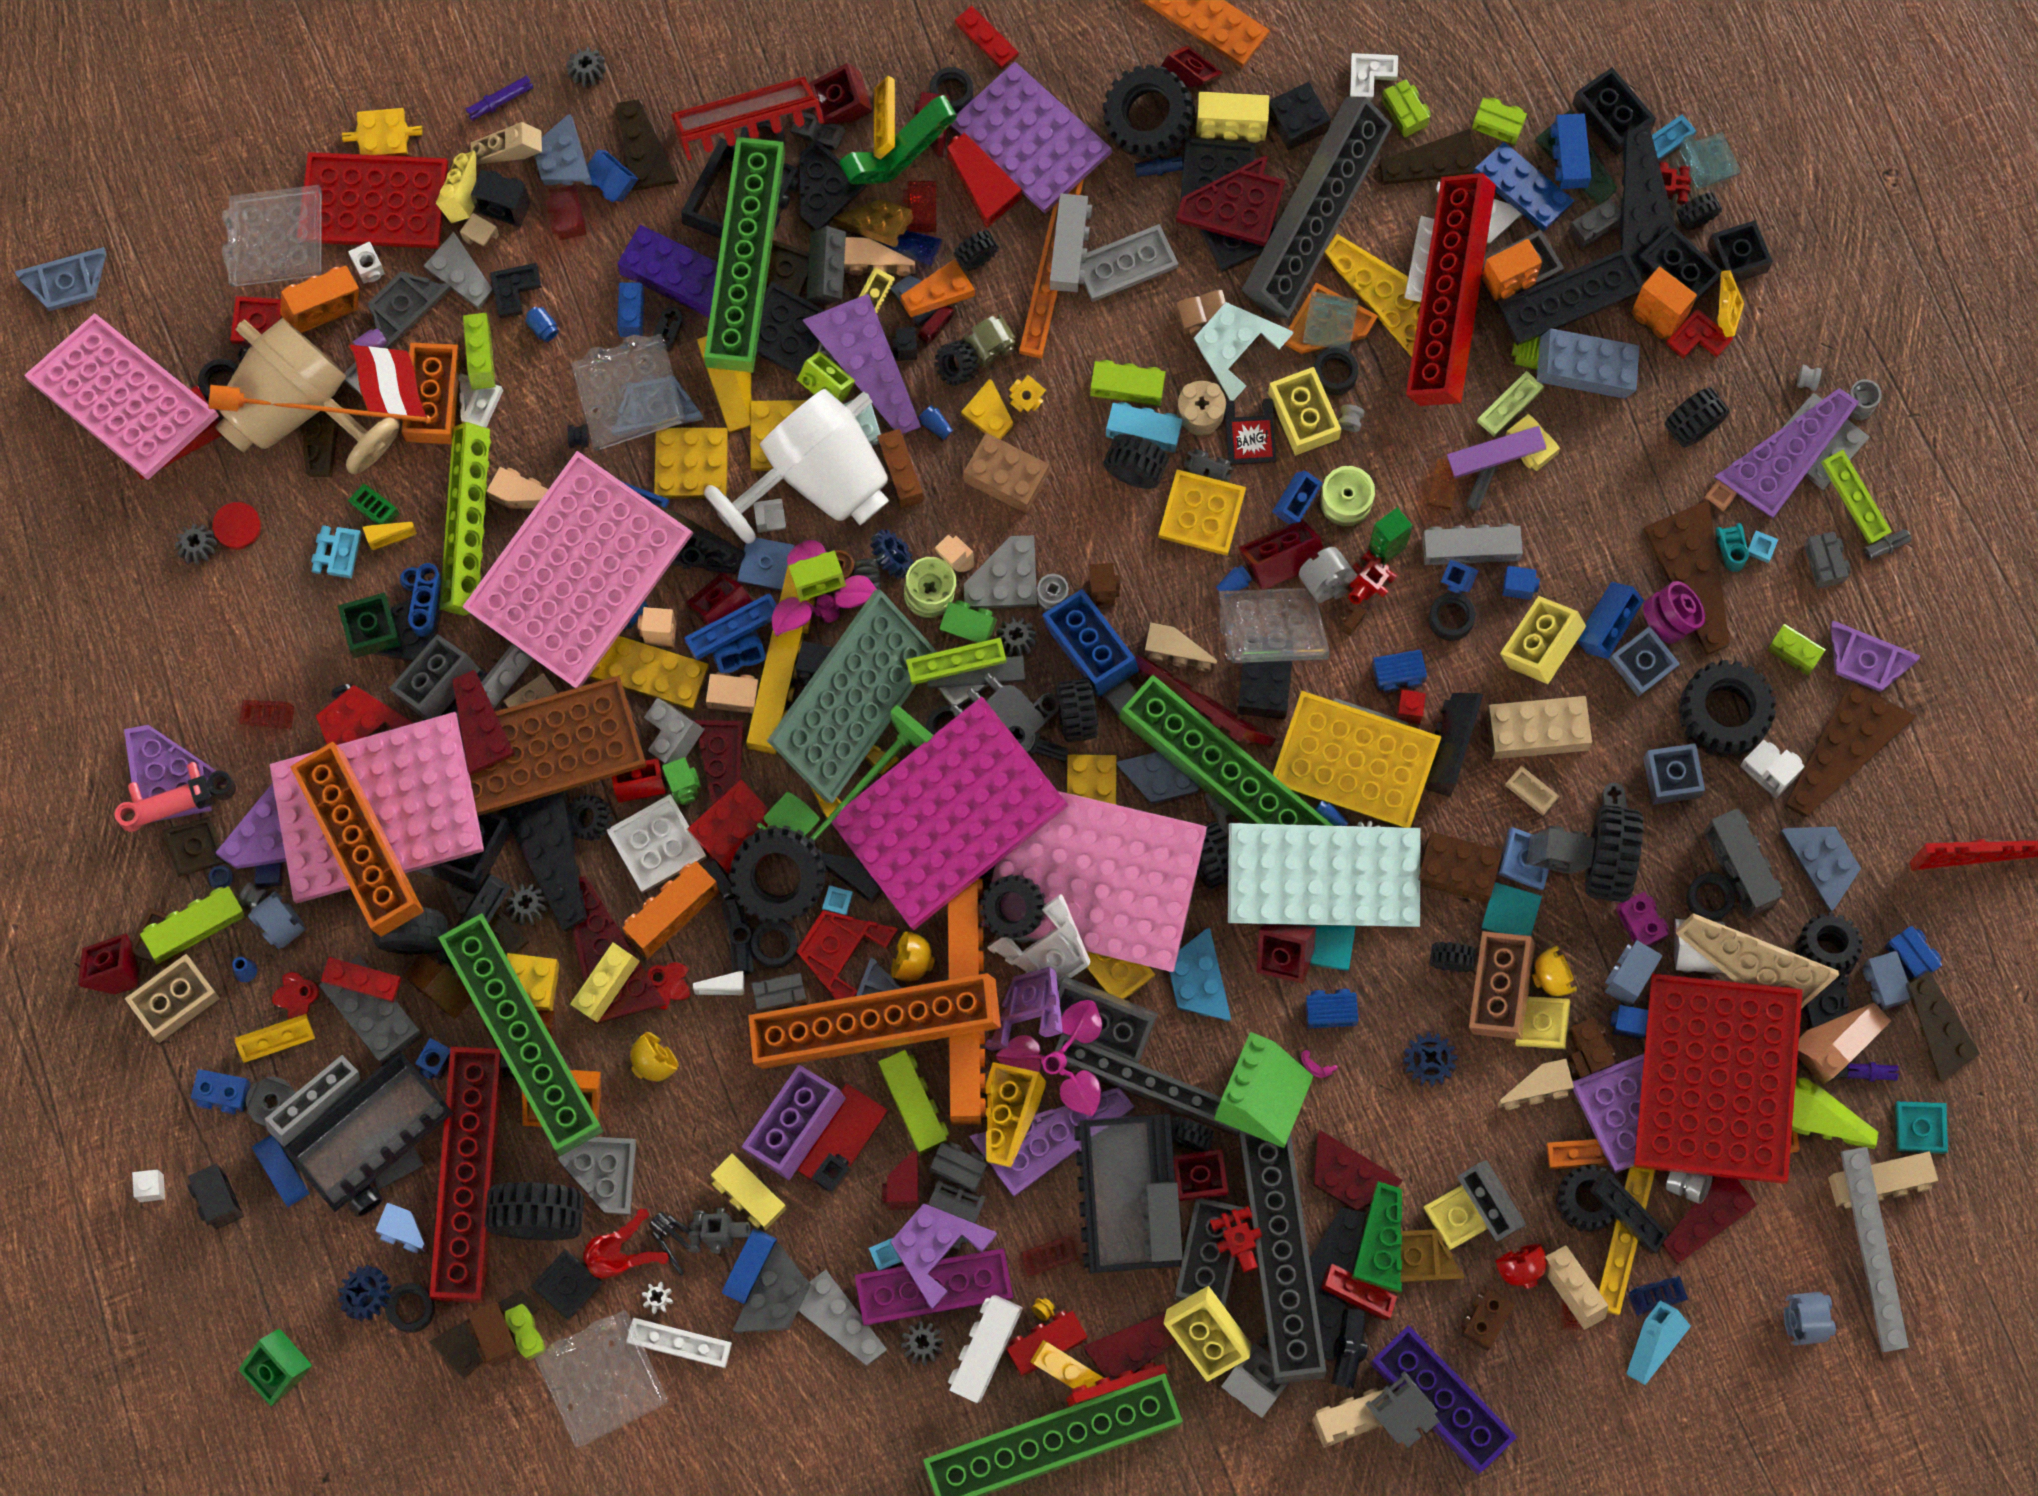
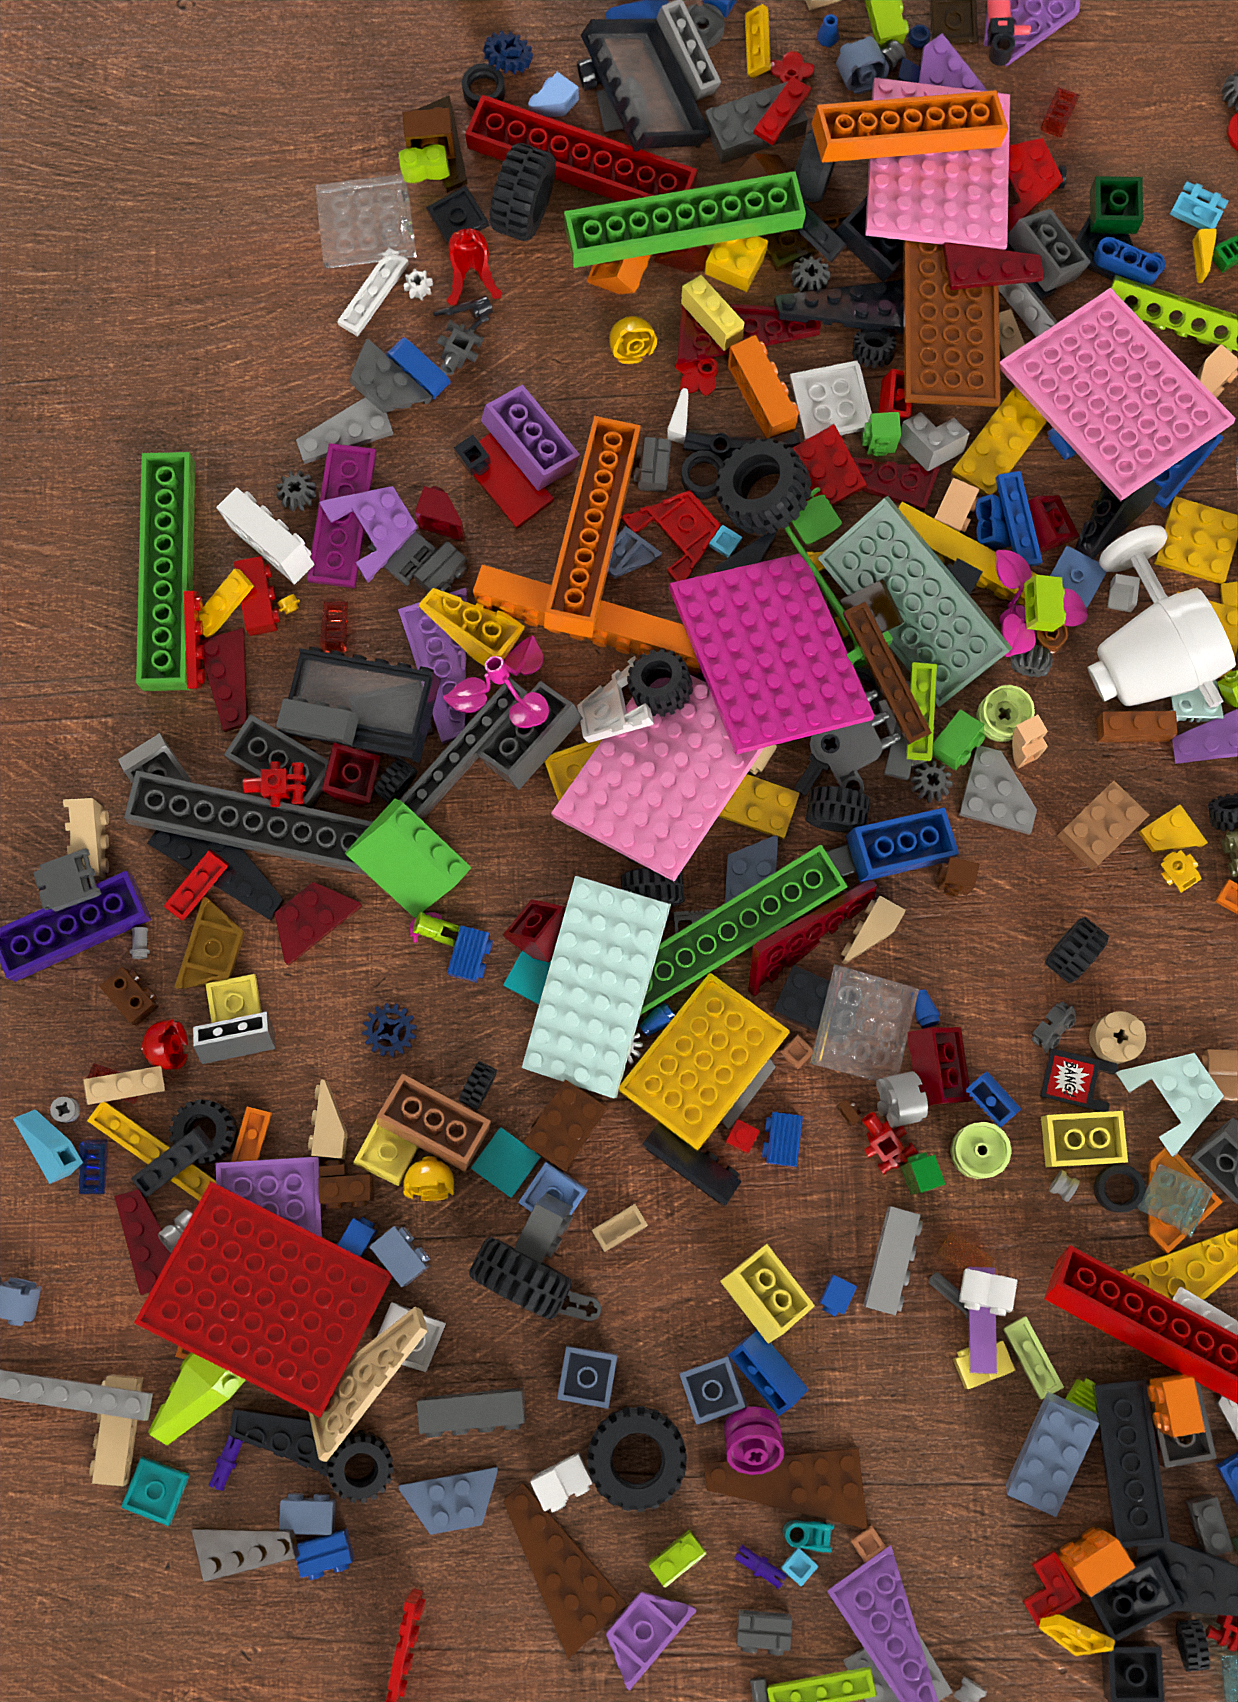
camera: 110 degrees right, 5 degrees up
(431, 1049) = (695, 152): blue brick -> none
(604, 1171) = (544, 275): light grey plate -> none
(657, 627) = (1039, 456): light nougat brick -> none
(747, 1193) = (483, 385): light yellow brick -> none
(869, 735) = (879, 602): none -> dark brown plate
(884, 1255) = (386, 479): medium azure plate -> none
(891, 553) = (1051, 688): dark blue gear -> none
(912, 958) = (646, 588): yellow cylinder -> none
(913, 1102) = (514, 548): lime brick -> none
(934, 698) = (887, 673): none -> reddish brown plate
(935, 422) = (1176, 776): blue cone -> none
(1027, 998) = (570, 676): medium lavender wing -> none
(1051, 591) = (966, 827): light grey wheel -> none
(1127, 383) = (1165, 975): lime brick -> none
(1145, 423) = (1113, 975): medium azure brick -> none
(1198, 979) = (542, 843): dark azure wing -> none
(1202, 512) = (1007, 1002): yellow plate -> none
(1207, 1333) = (204, 730): light yellow brick -> none
(1313, 682) = (797, 1051): none -> nougat tile
(1318, 1051) = (432, 928): none -> lime hinge
(1349, 1348) = (150, 859): black piece -> none
(1381, 1242) = (229, 918): green wing -> none
(1433, 1330) = (139, 943): none -> light grey pin
(1457, 599) = (842, 1210): black tyre -> none
(1459, 577) = (861, 1233): blue brick -> none
(1472, 452) = (987, 1291): none -> white brick
(1538, 727) = (680, 1257): tan brick -> none
(1613, 1344) = (70, 1111): none -> light grey wheel
(1642, 921) = (450, 1288): magenta brick -> none
(1697, 417) = (958, 1549): black tyre -> none
(1723, 883) = (434, 1364): black tyre -> none
(1775, 579) = (760, 1566): none -> dark purple pin
(1837, 1042) = (262, 1439): nougat wedge -> none

